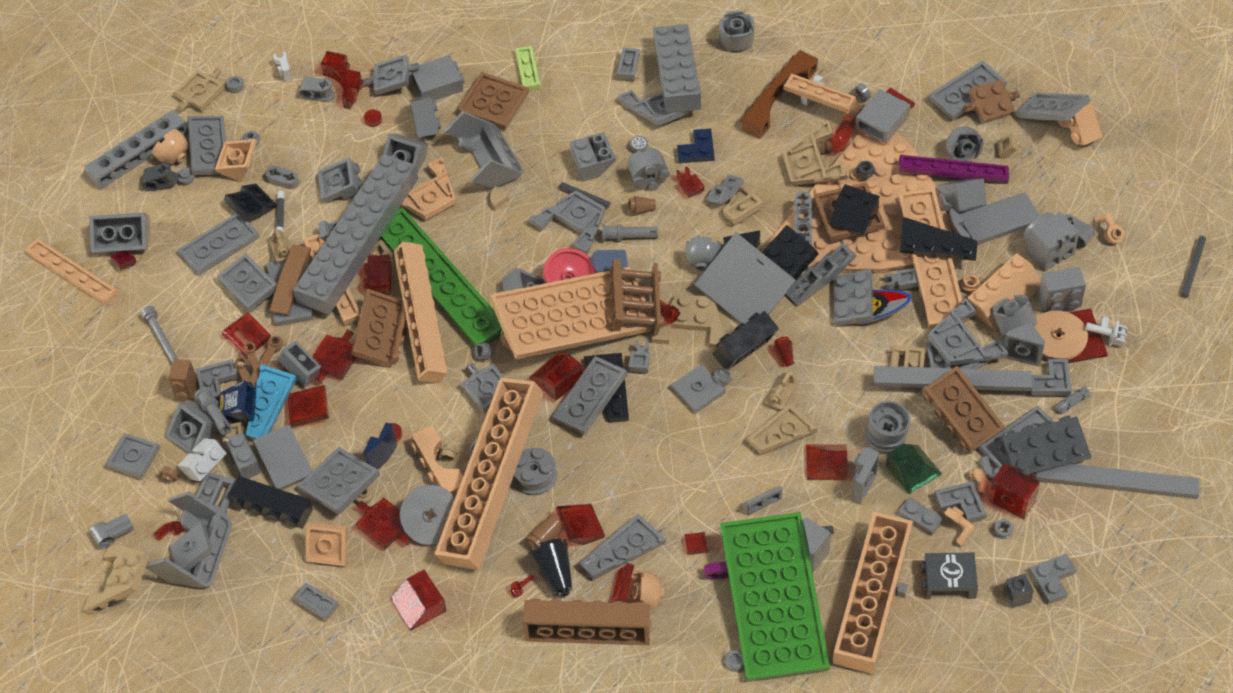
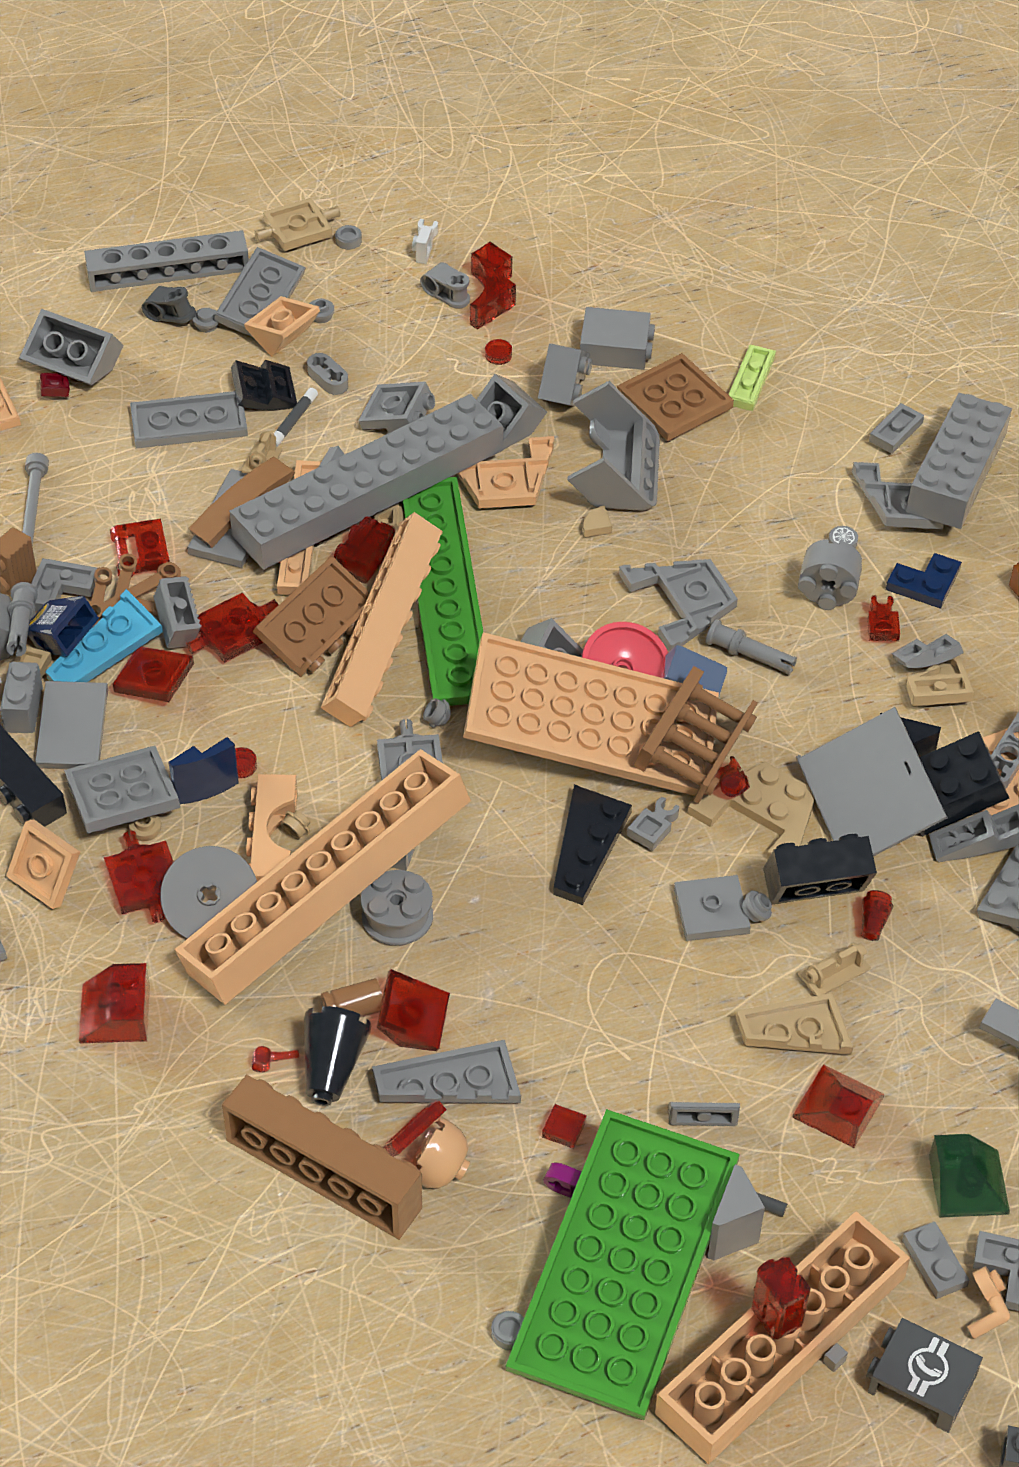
camera: 25 degrees right, 5 degrees down
(172, 148) = (209, 275): light nougat cylinder -> none
(247, 282) = (187, 480): light grey plate -> none
(391, 74) = (556, 306): light grey plate -> none
(558, 375) = (519, 794): clear red slope -> none
(568, 188) = (741, 594): dark grey bar -> none
(590, 395) = (544, 840): light grey plate -> none
(592, 155) = (763, 523): light grey slope -> none
(641, 204) = (792, 619): medium nougat cone -> none
(701, 252) = (834, 716): light grey cylinder -> none
(865, 473) = (883, 1150): light grey plate -> none
(867, 573) = (780, 1297): none -> clear red brick
(887, 426) = (961, 1095): light grey wheel -> none

